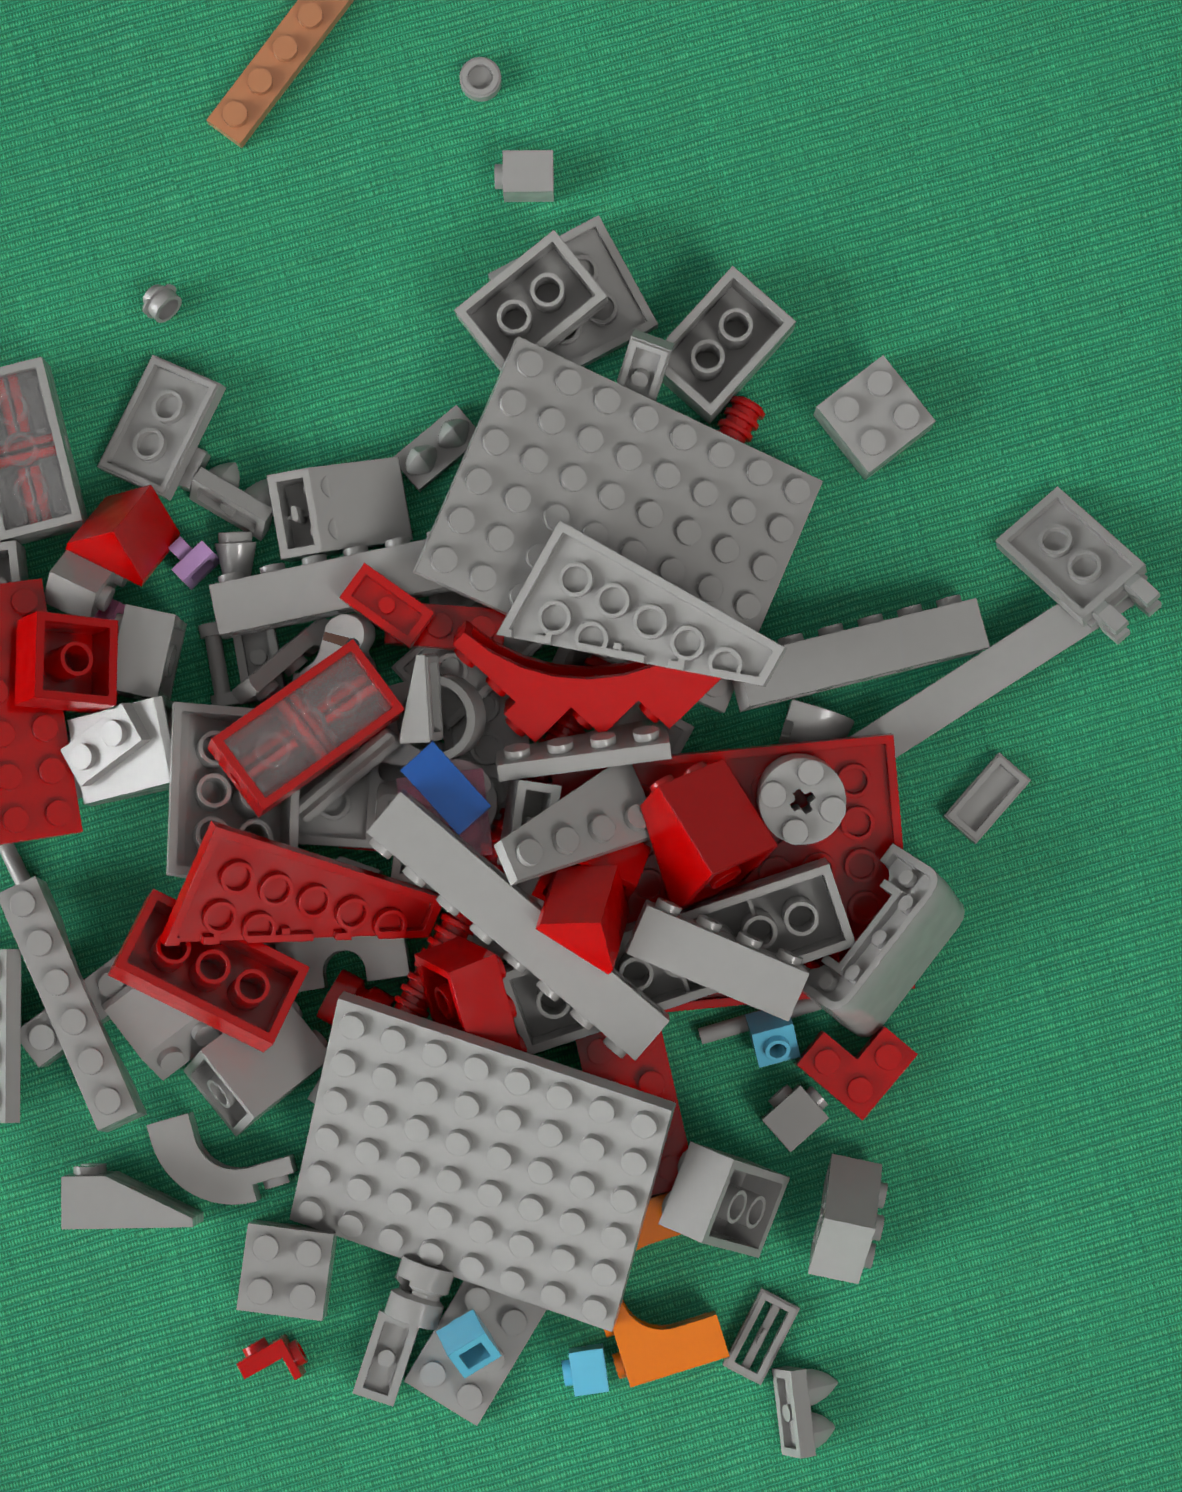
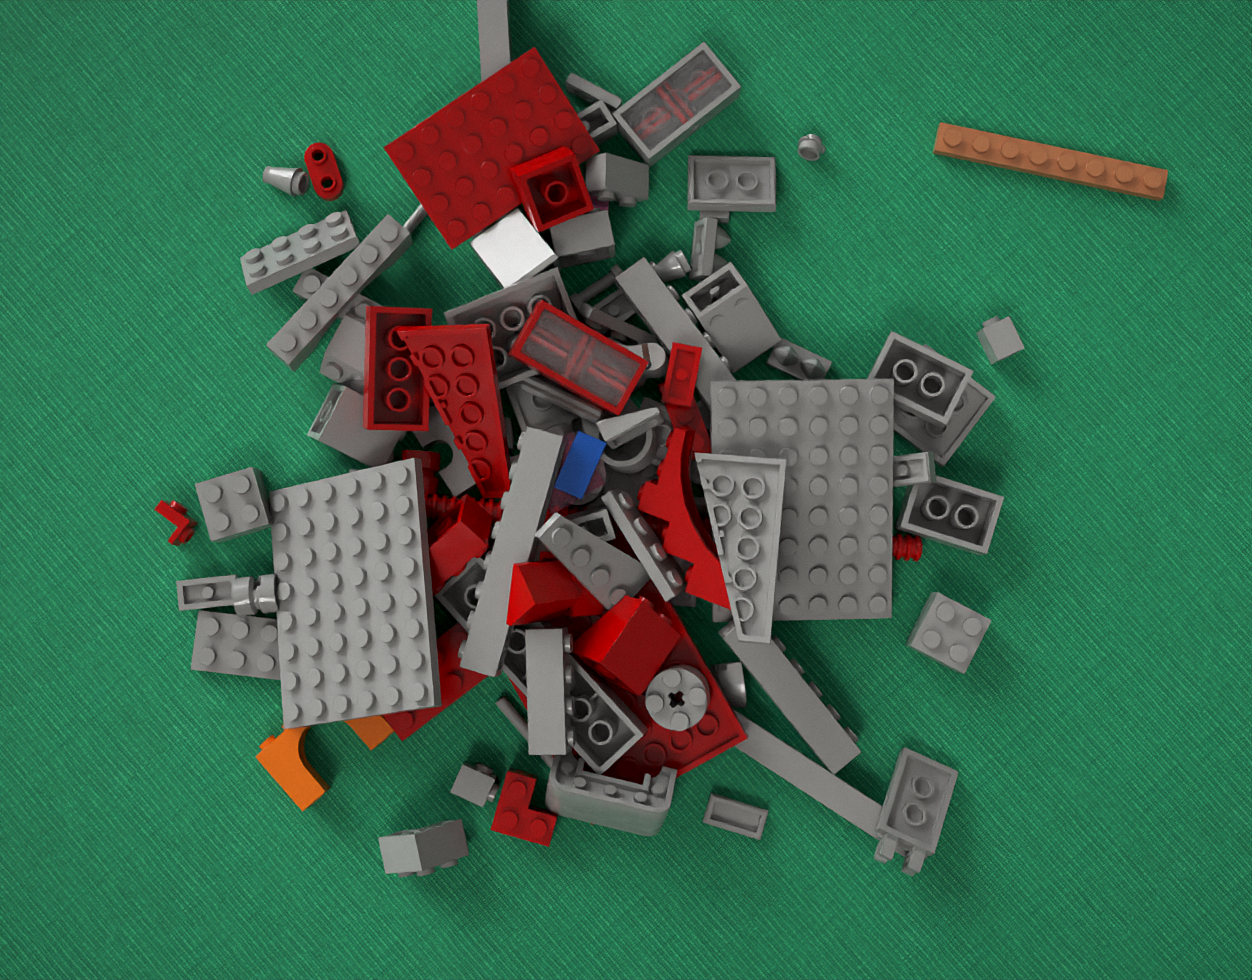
camera: 60 degrees right, 0 degrees up
(105, 744) = (511, 237): plate -> none
(115, 1201) = (231, 380): light grey slope -> none
(127, 534) = (652, 192): red slope -> none
(193, 563) = (655, 243): lavender tile -> none
(198, 1172) = (272, 424): light grey arch -> none
(468, 1343) = (237, 640): medium azure plate -> none
(480, 79) = (1048, 282): light grey tile -> none
(586, 1370) = (255, 723): medium azure plate -> none
(723, 1200) = (398, 763): light grey brick -> none
(744, 1368) = (352, 825): light grey tile -> none
(772, 1038) = (516, 748): medium azure plate -> none
(795, 1393) = (279, 875): light grey tile -> none

